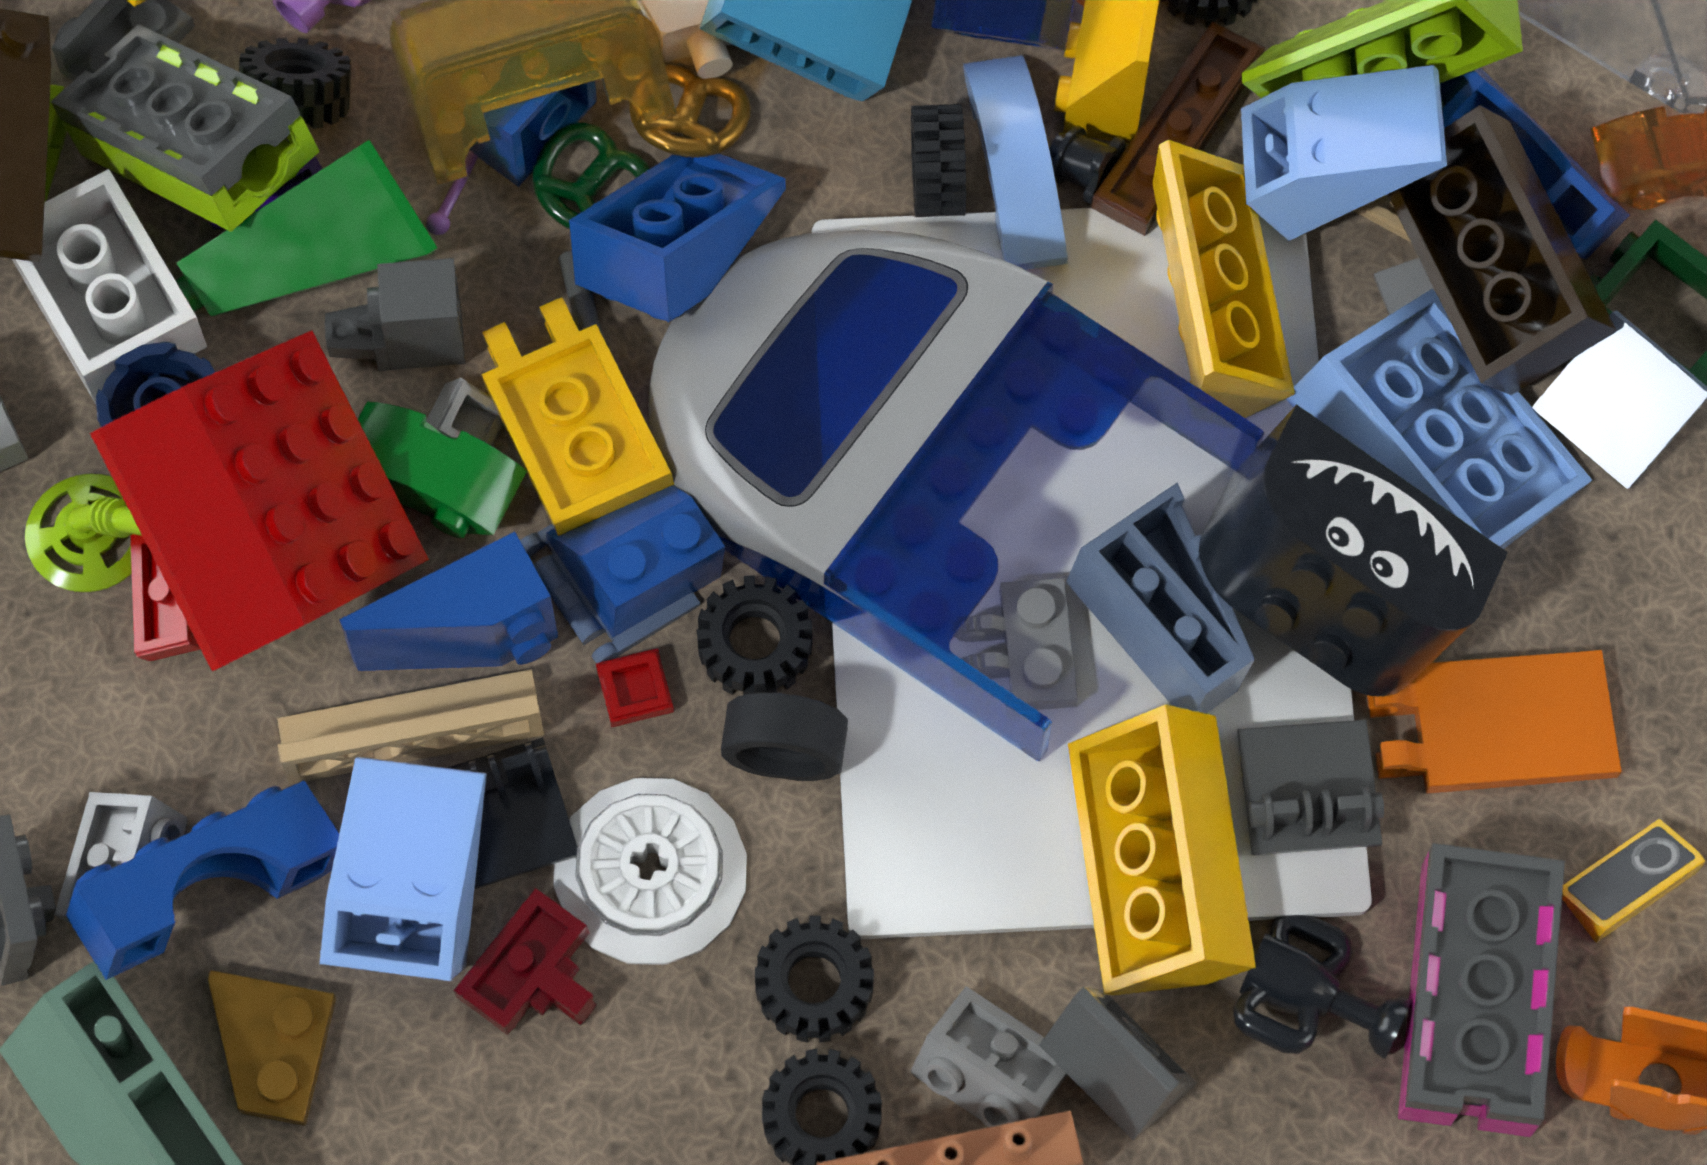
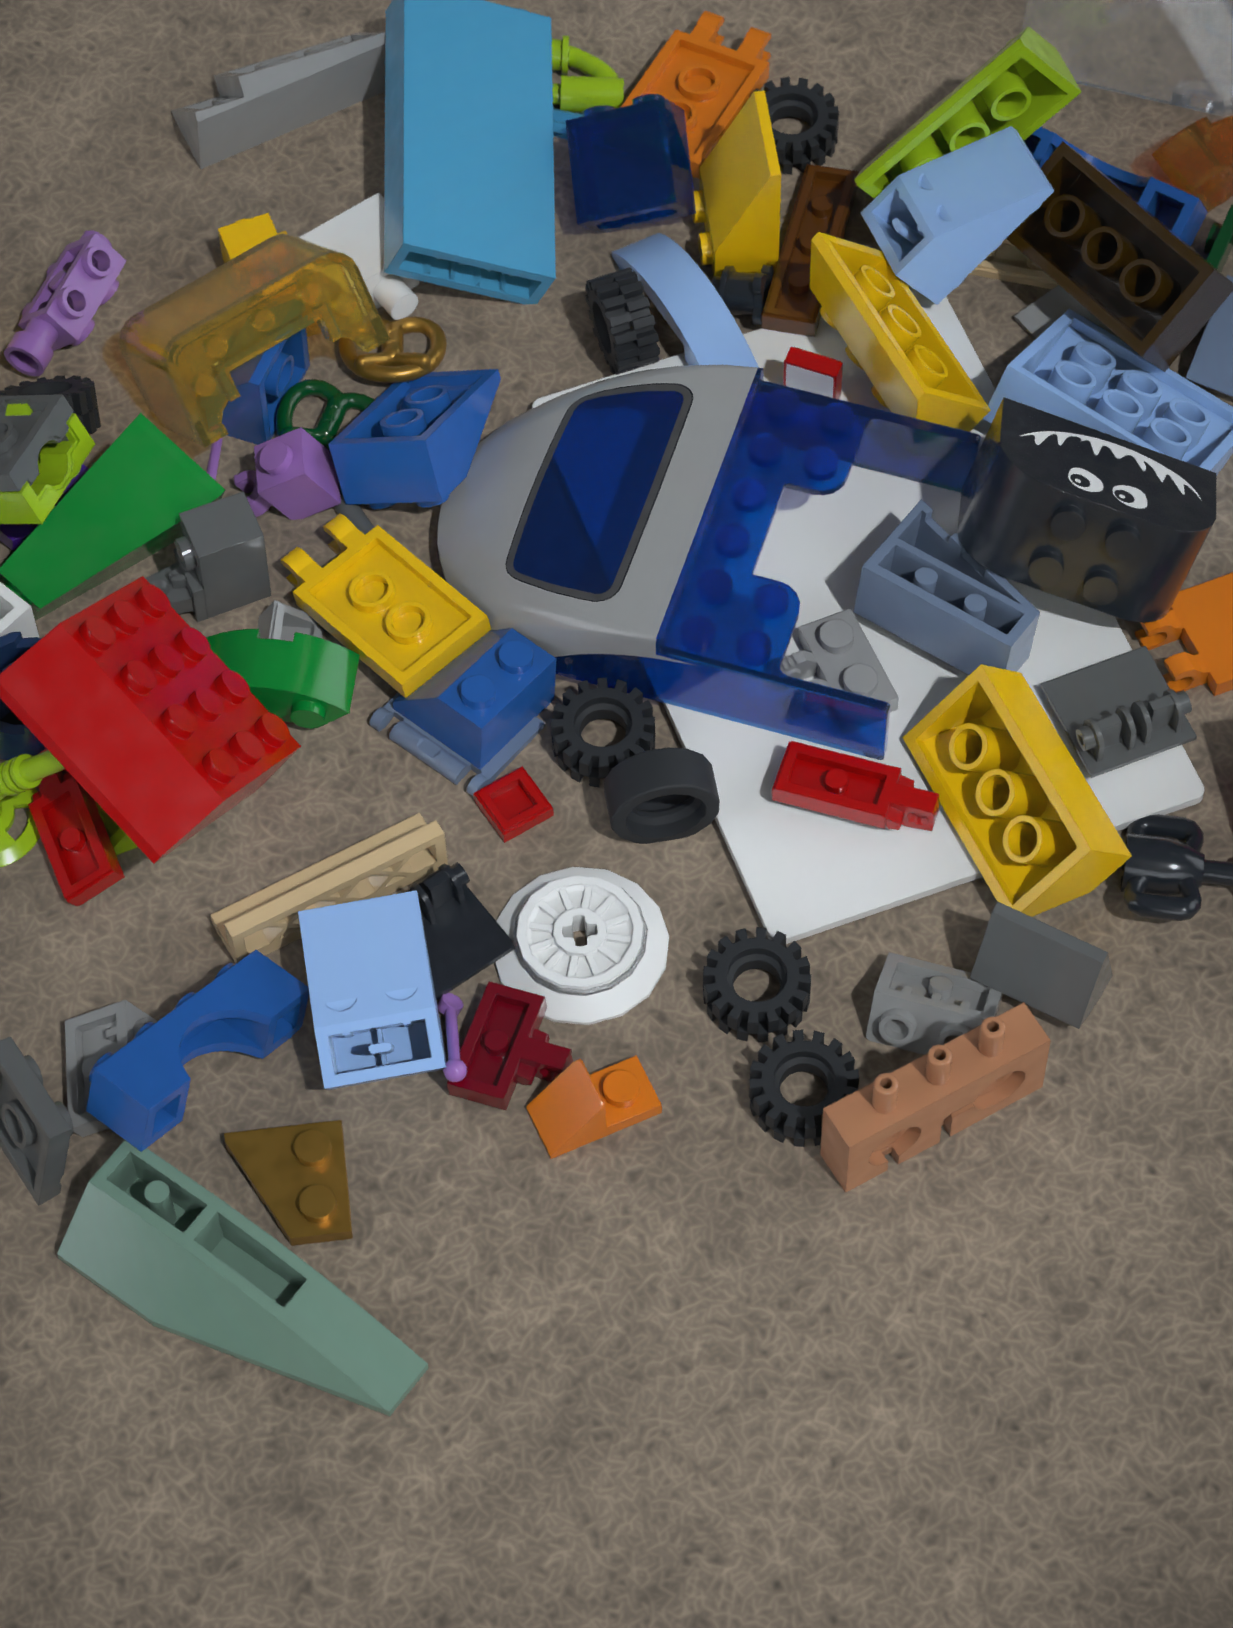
camera: 15 degrees left, 10 degrees down
(461, 616) = (345, 780): blue slope -> none
(490, 899) = (451, 1006): none -> medium lavender hinge
(524, 238) = (291, 475): none -> medium lavender brick
(598, 1060) = (589, 1107): none -> orange slope
(989, 790) = (852, 789): none -> red hinge
(1119, 290) = (813, 373): none -> tile

